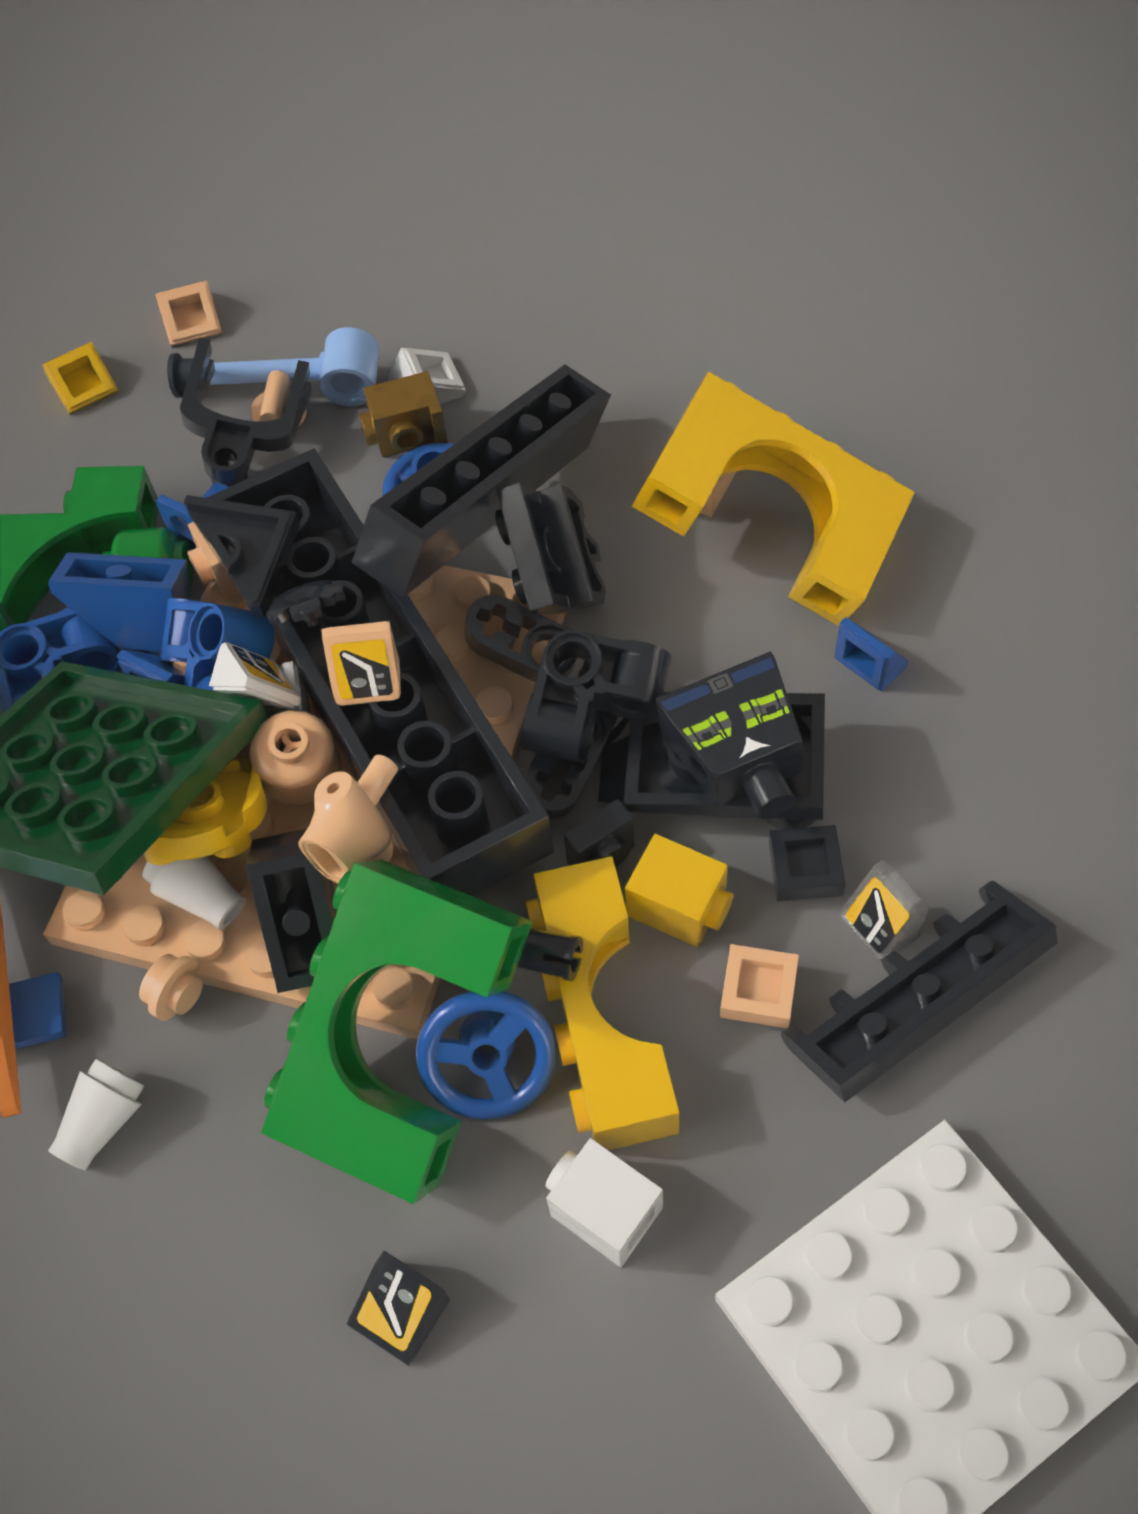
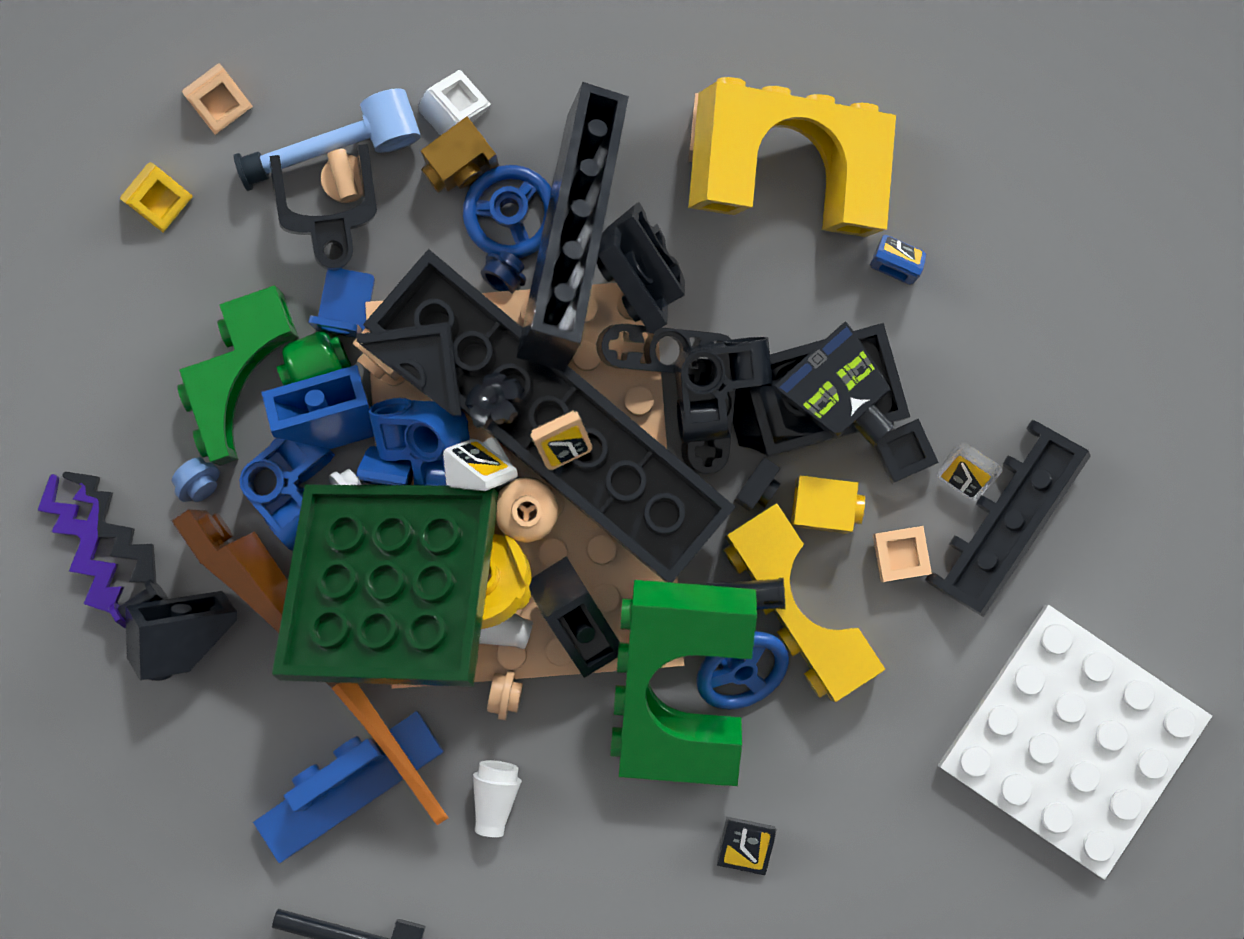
camera: 25 degrees left, 25 degrees up
(346, 820) = (605, 563): light nougat piece -> none
(603, 1200) = (851, 736): white brick -> none

